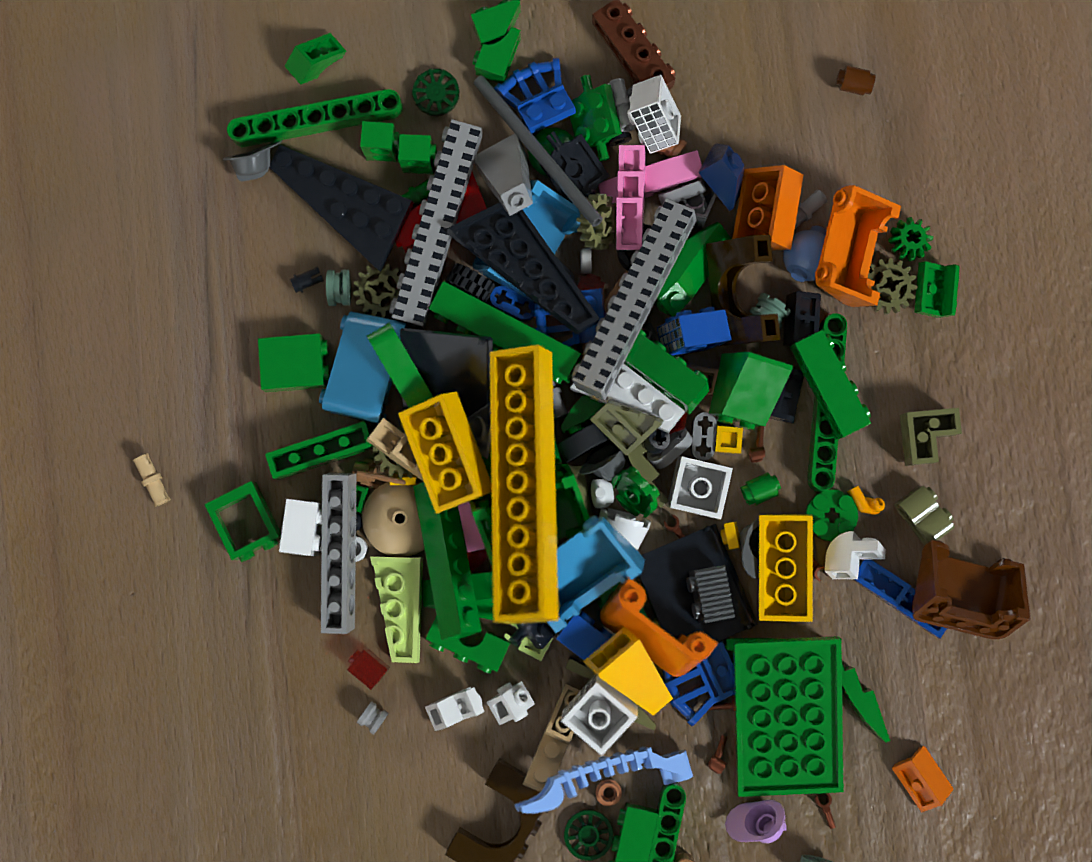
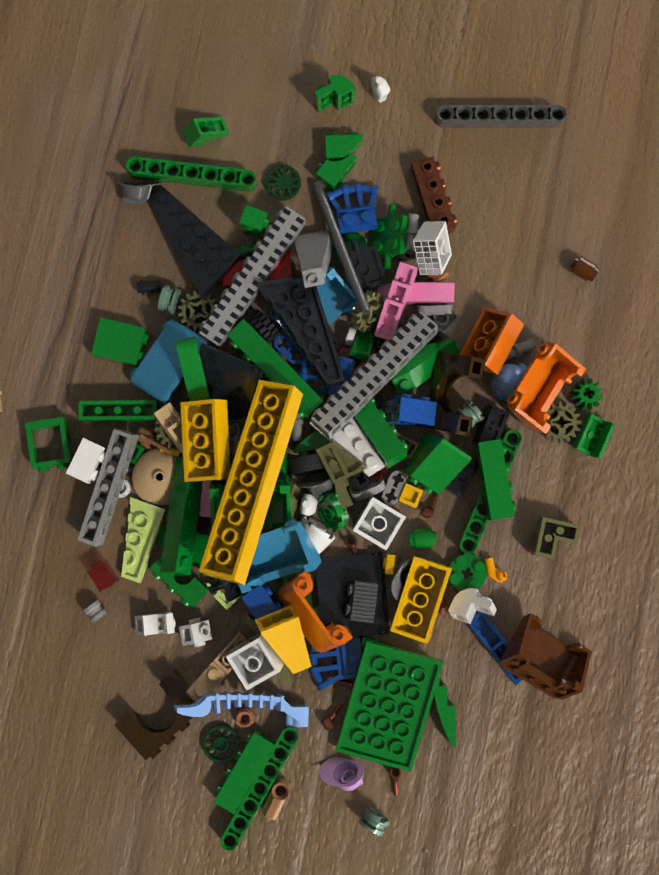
camera: 10 degrees right, 0 degrees up
(379, 141) = (231, 205): green brick -> none
(605, 267) = (362, 345): none -> green tile
(723, 173) = (467, 306): dark blue slope -> none
(923, 780) = (471, 781): orange panel -> none
(925, 515) = (533, 594): olive brick -> none

